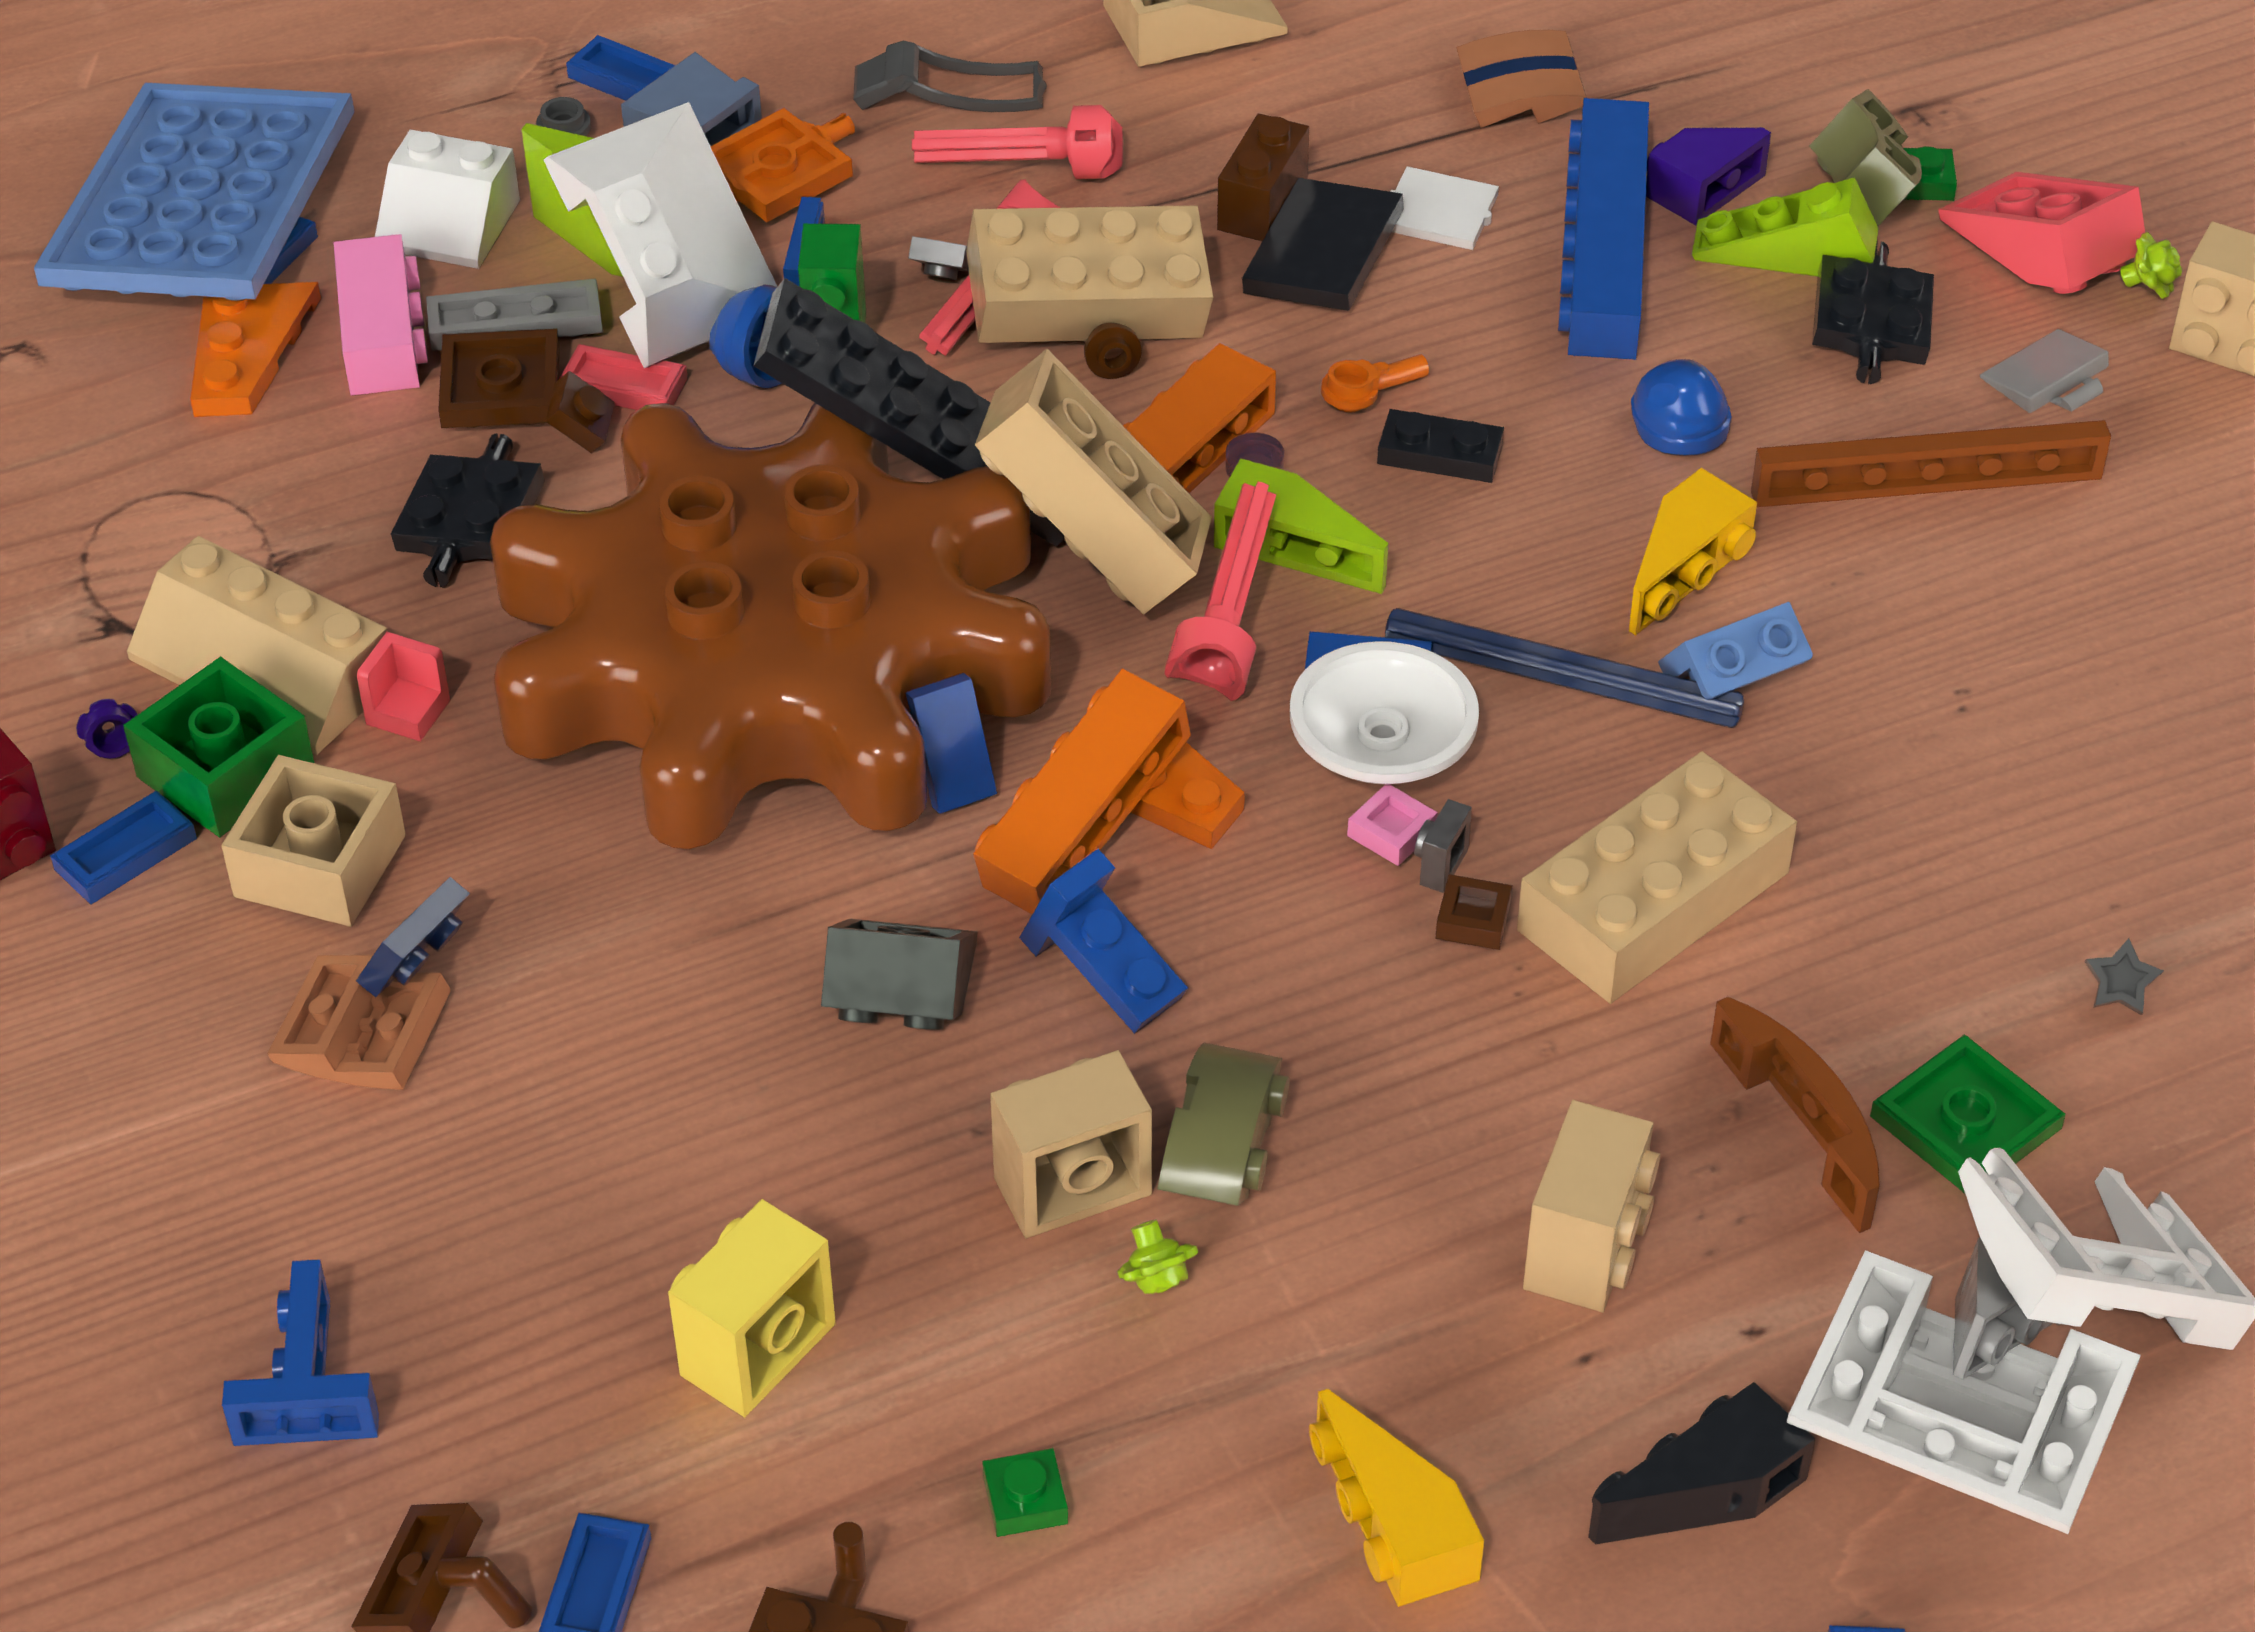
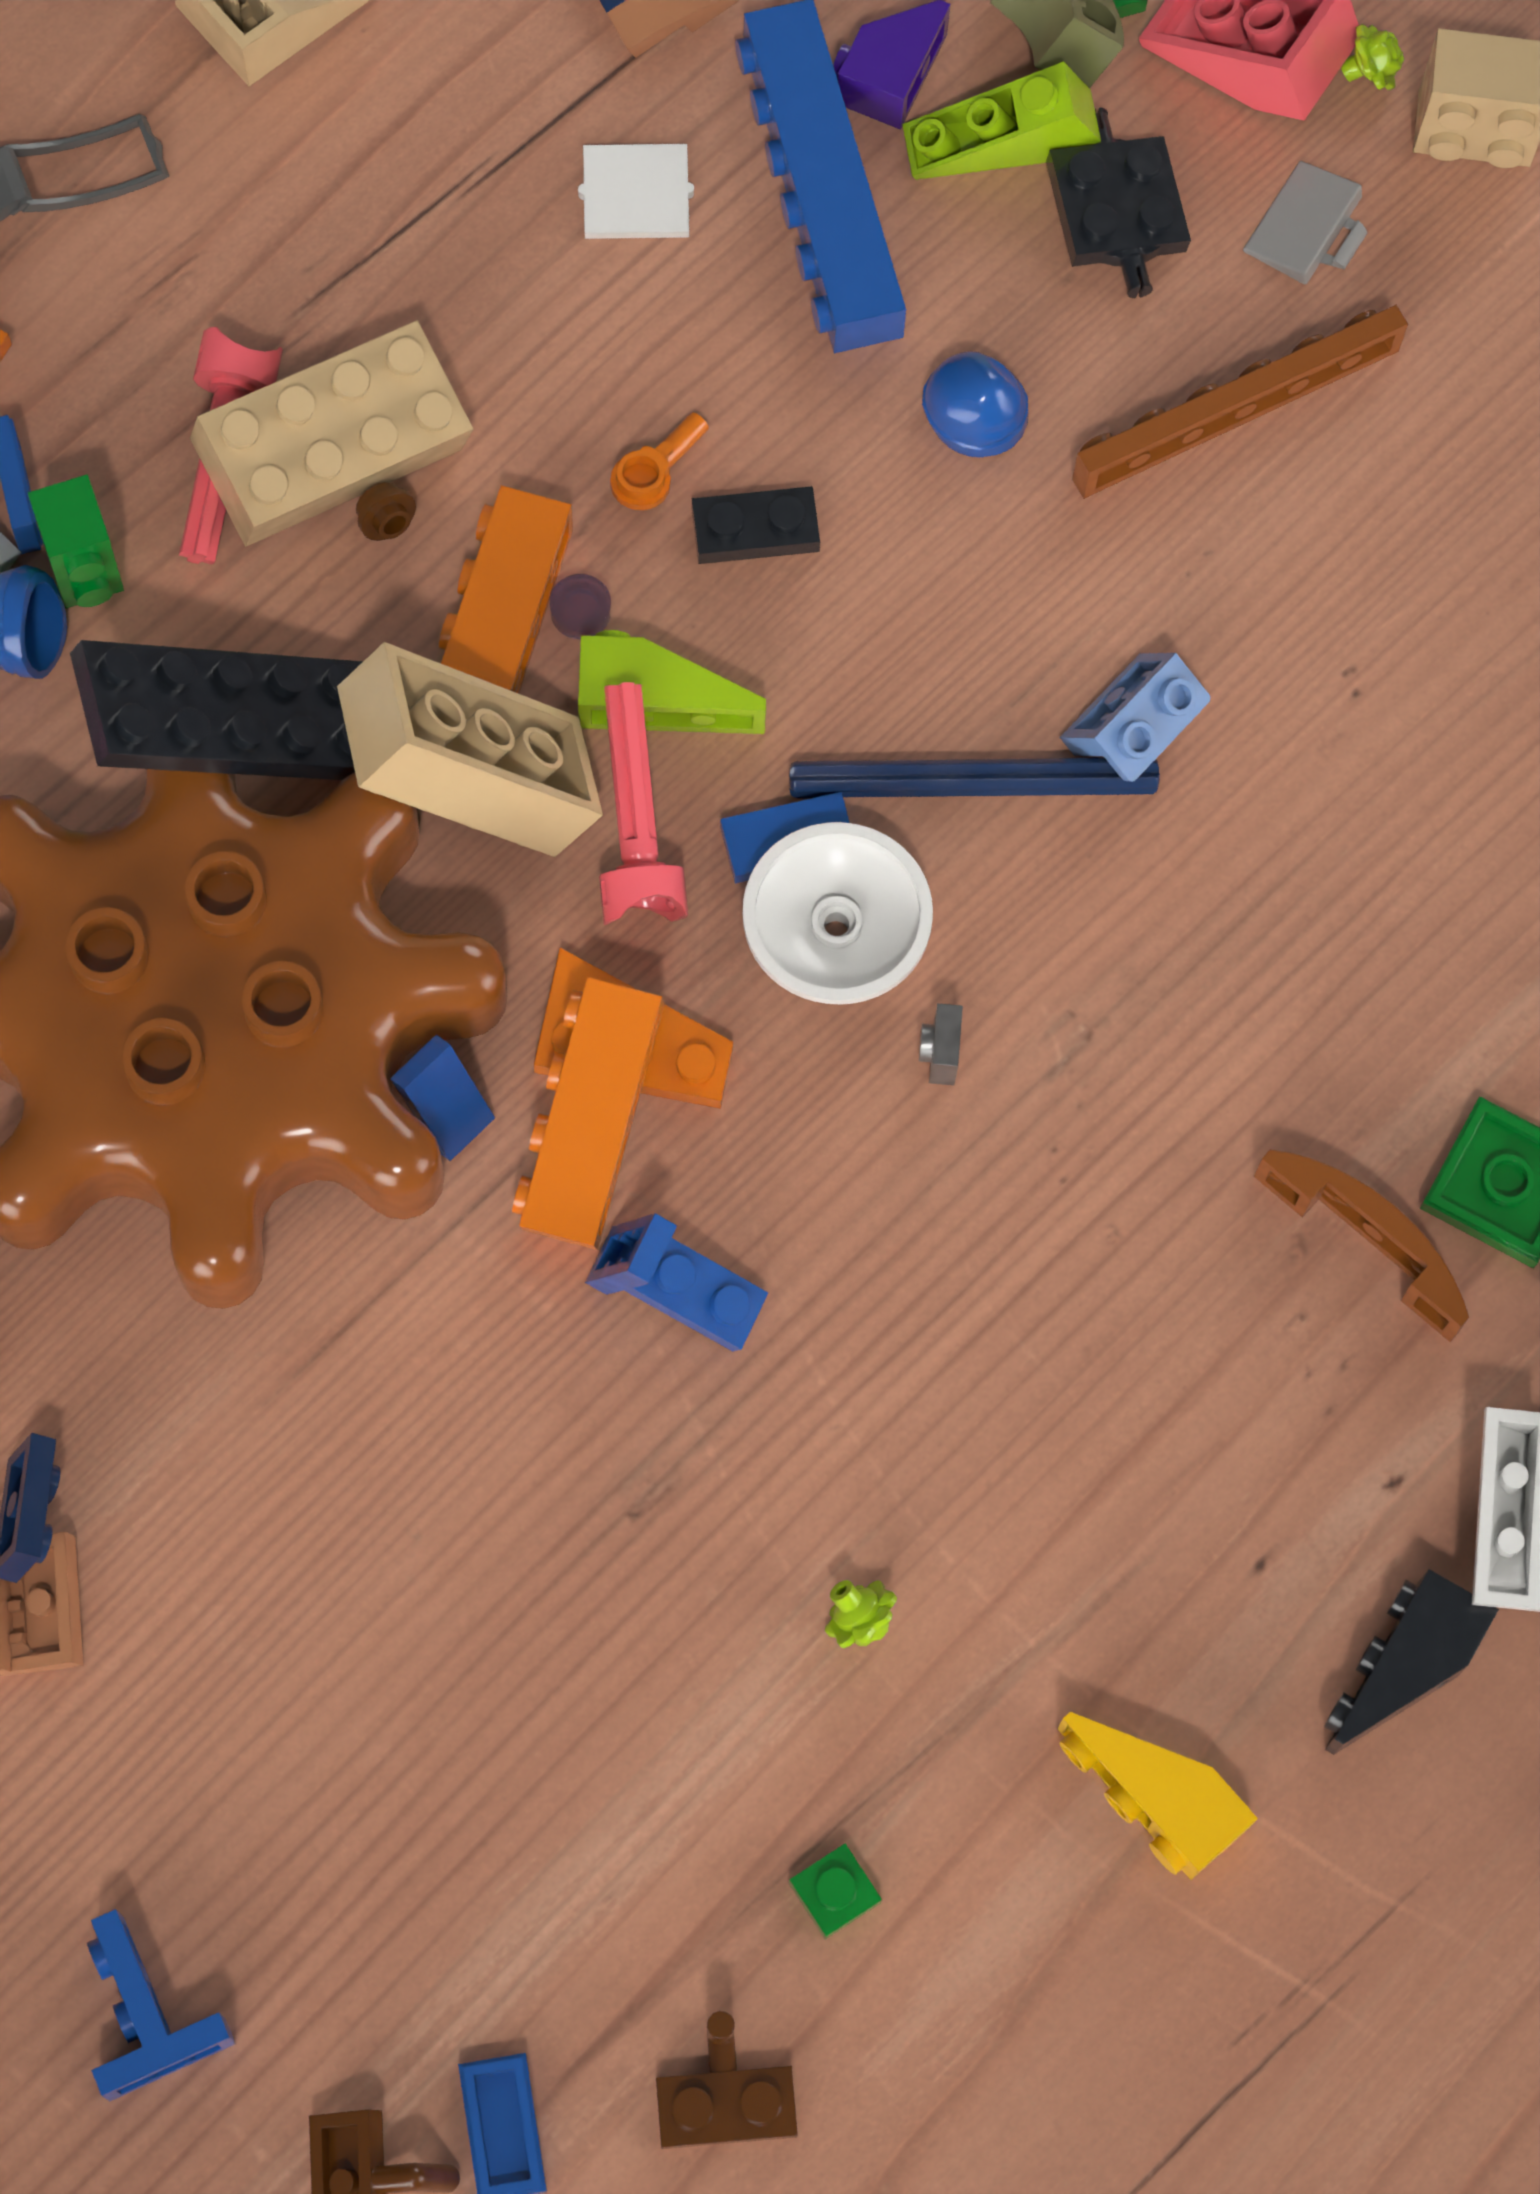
camera: 25 degrees left, 25 degrees up
(752, 1307) = (531, 1812): light yellow brick -> none
(897, 971) = (495, 1368): pearl dark grey slope -> none
(940, 257) = (160, 438): flat silver plate -> none
(1072, 1143) = (743, 1527): tan brick -> none
(1090, 142) = (249, 230): coral piece -> none
(1222, 1124) = (865, 1448): olive brick -> none
(1261, 175) = (449, 222): reddish brown brick -> none
(1323, 244) = (540, 287): black tile -> none
(1389, 823) = (885, 1033): bright pink plate -> none
(1473, 912) = (997, 1111): reddish brown plate -> none
(1591, 1206) = (1228, 1430): tan brick -> none
(1655, 876) = (1152, 1015): tan brick -> none
(1693, 537) = (1041, 576): yellow slope -> none

